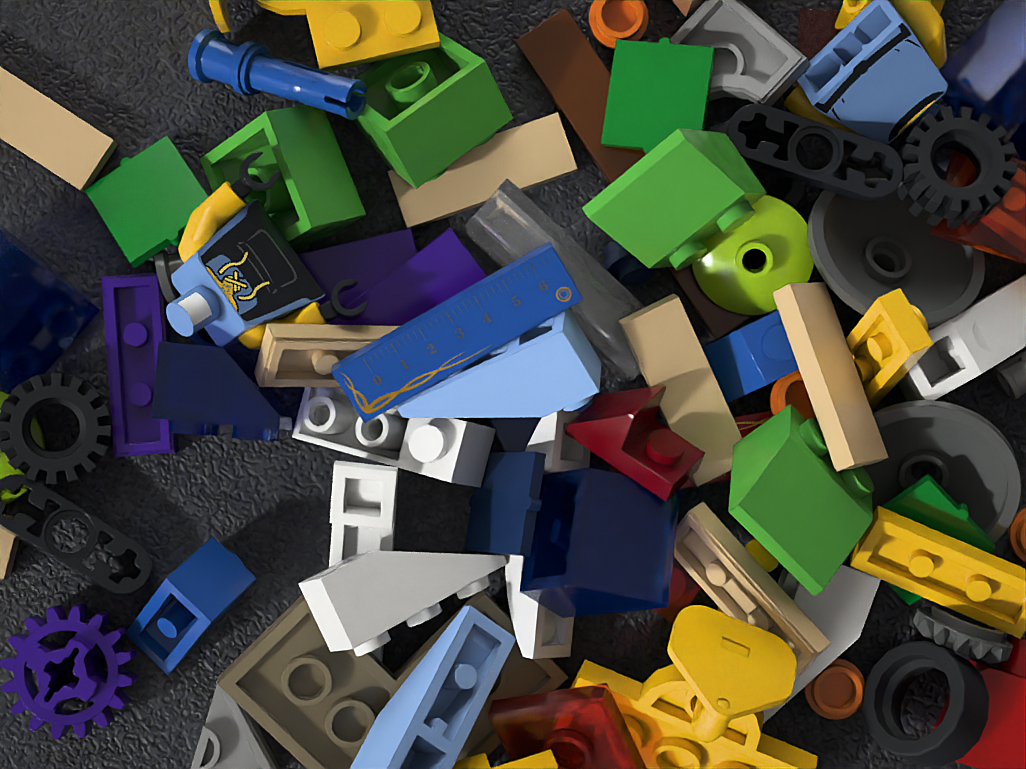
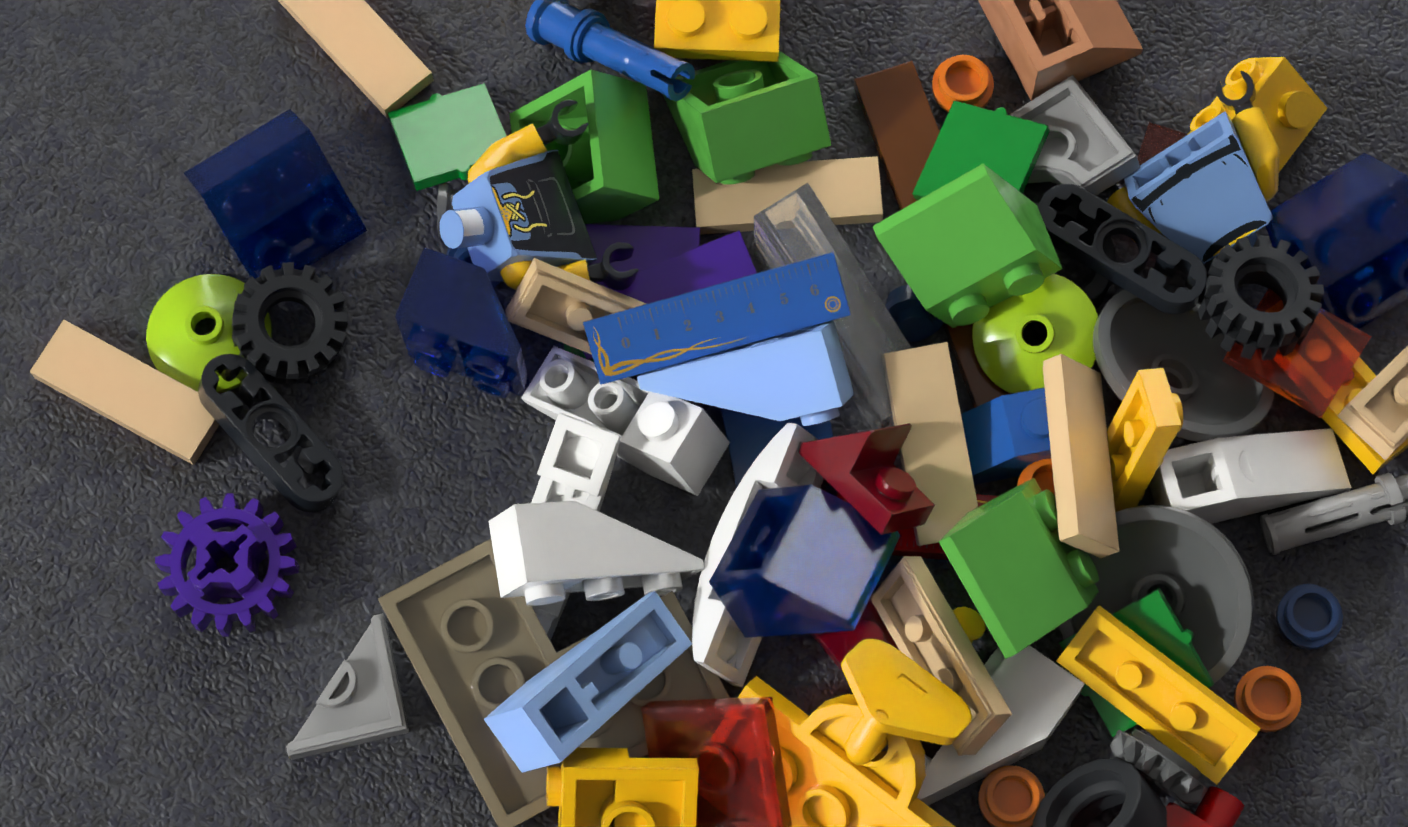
camera: 15 degrees right, 15 degrees down
(133, 328) = (373, 340): dark purple tile -> none
(190, 604) = (368, 532): blue slope -> none
(506, 504) = (720, 509): dark blue piece -> none

